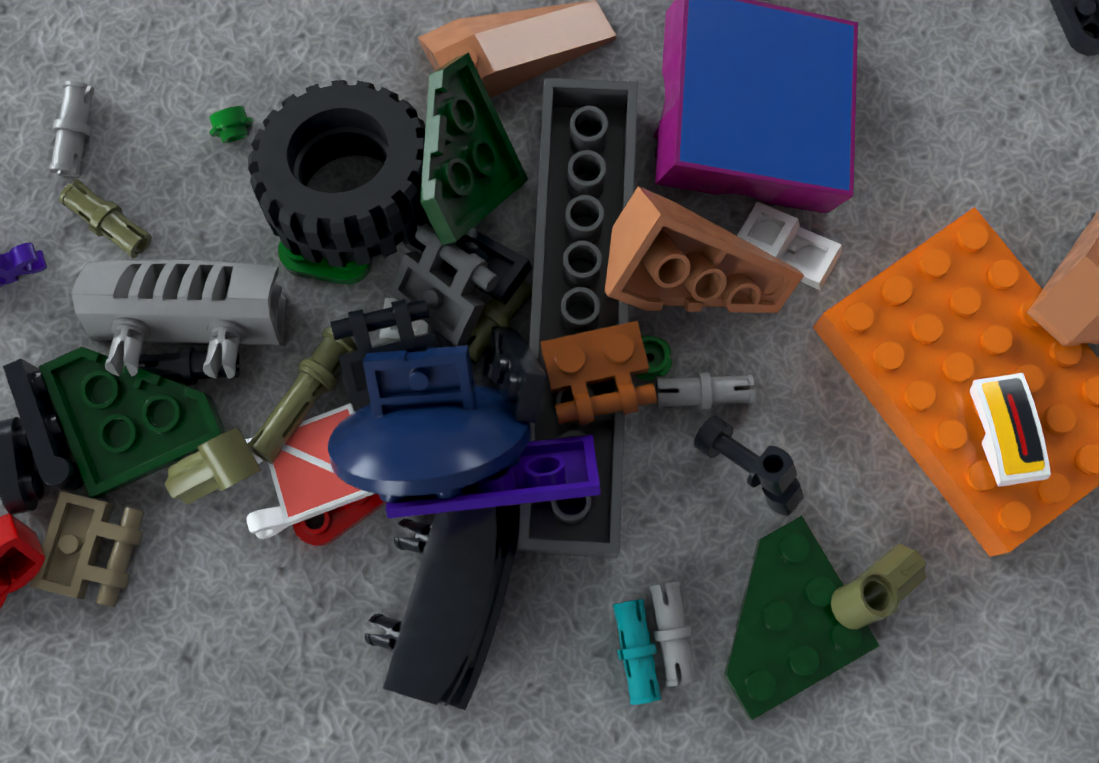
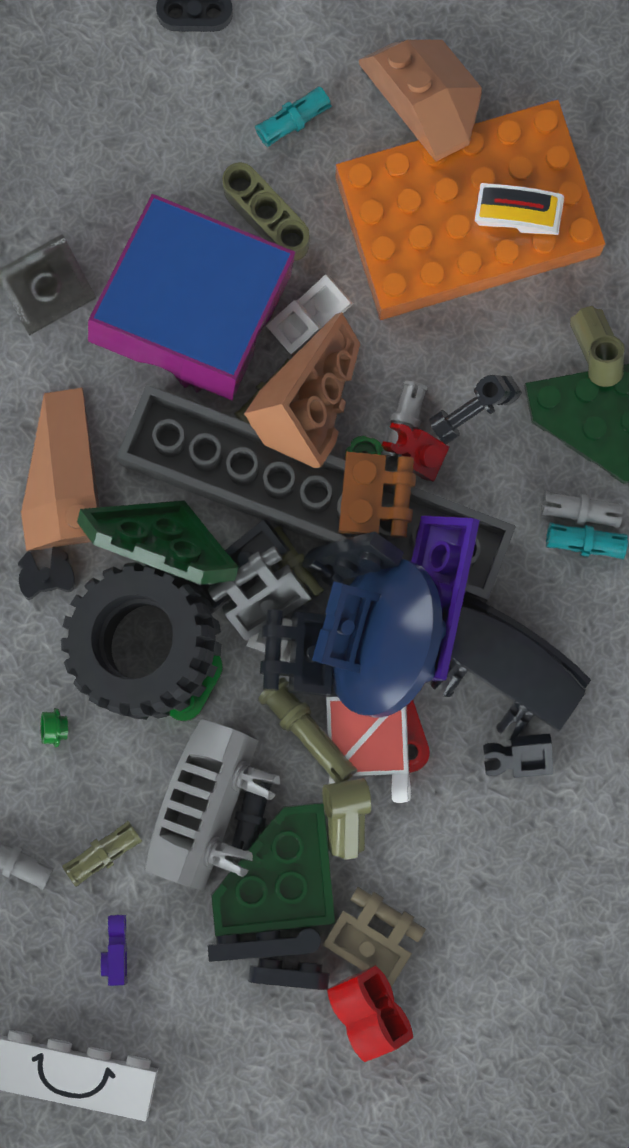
camera: 75 degrees left, 5 degrees up
(351, 657) = (526, 756): none -> black plate
(388, 56) = (46, 579): none -> black piece
(674, 416) = (420, 445): none -> red plate
(896, 140) = (259, 195): none -> olive beam
(1009, 153) = (293, 116): none -> teal pin

